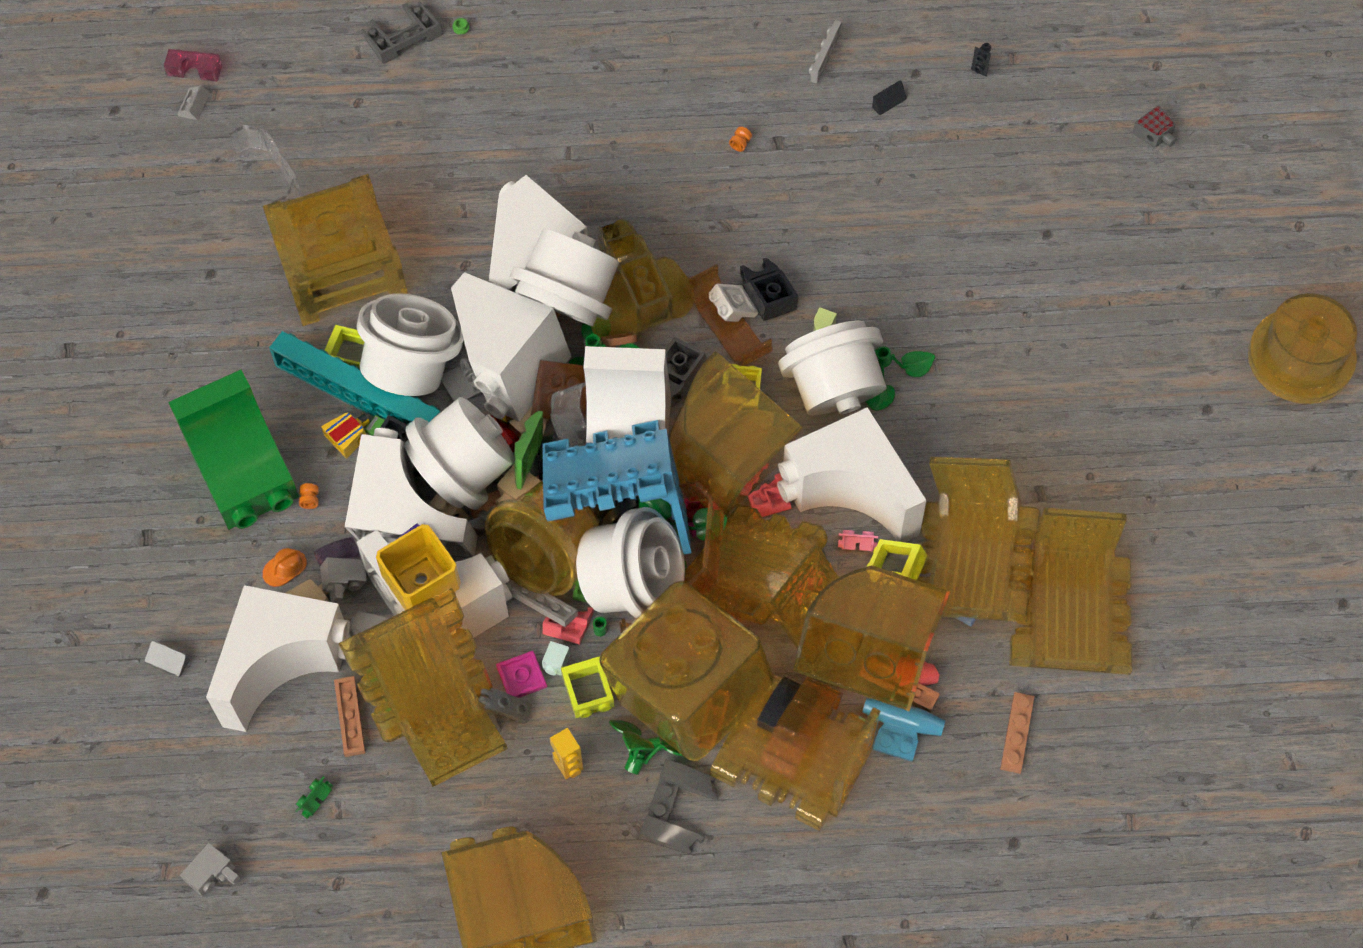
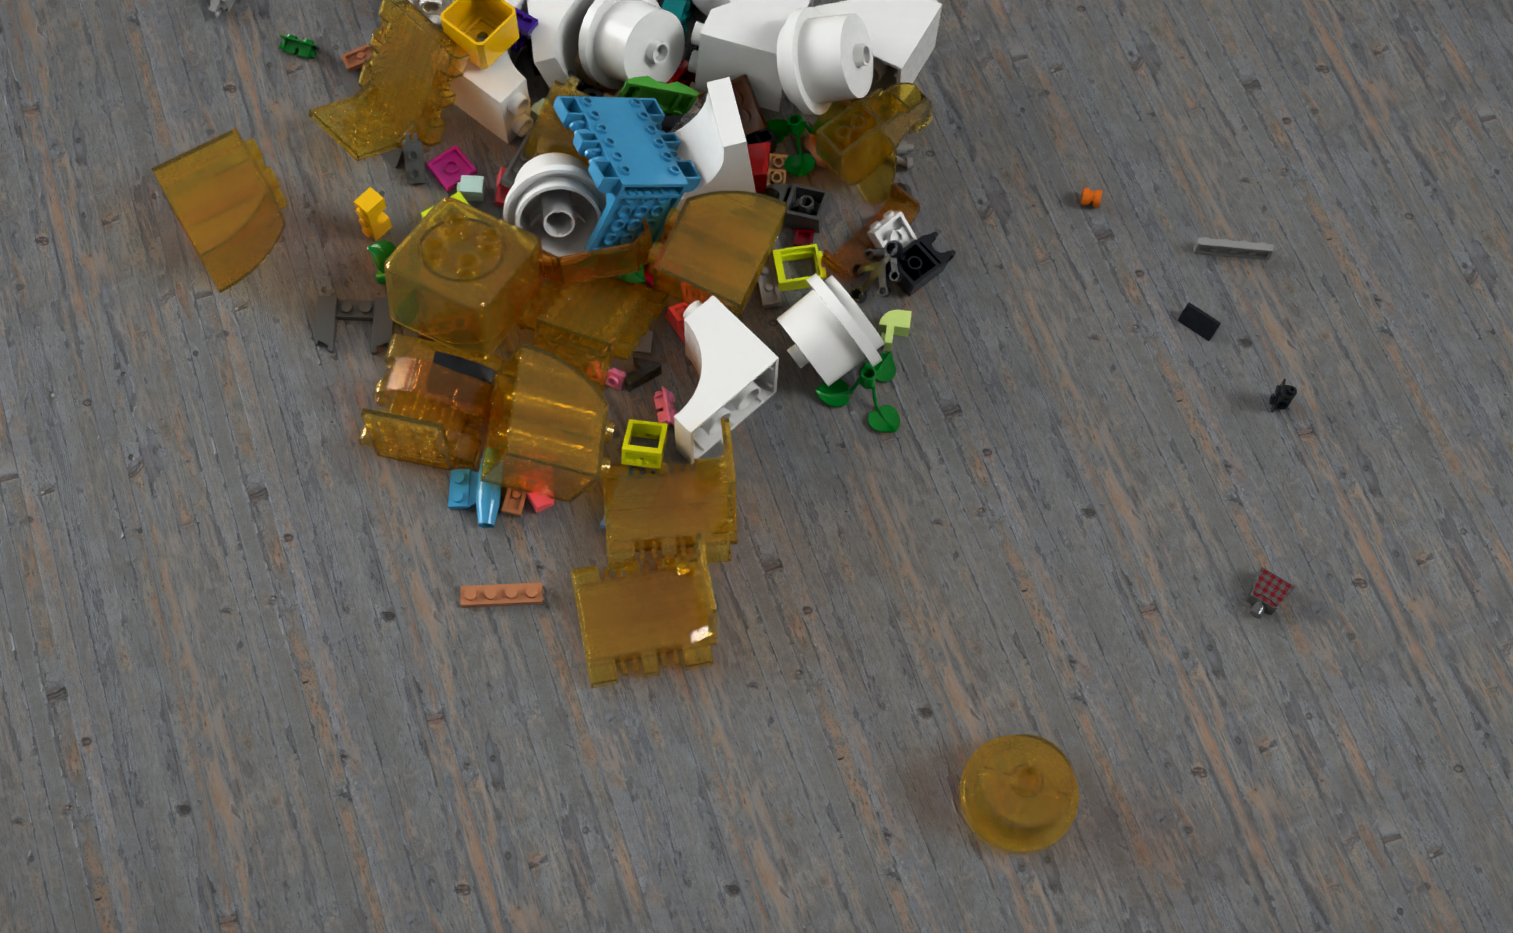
camera: 70 degrees right, 5 degrees up
(770, 318) = (879, 270): none -> black plant

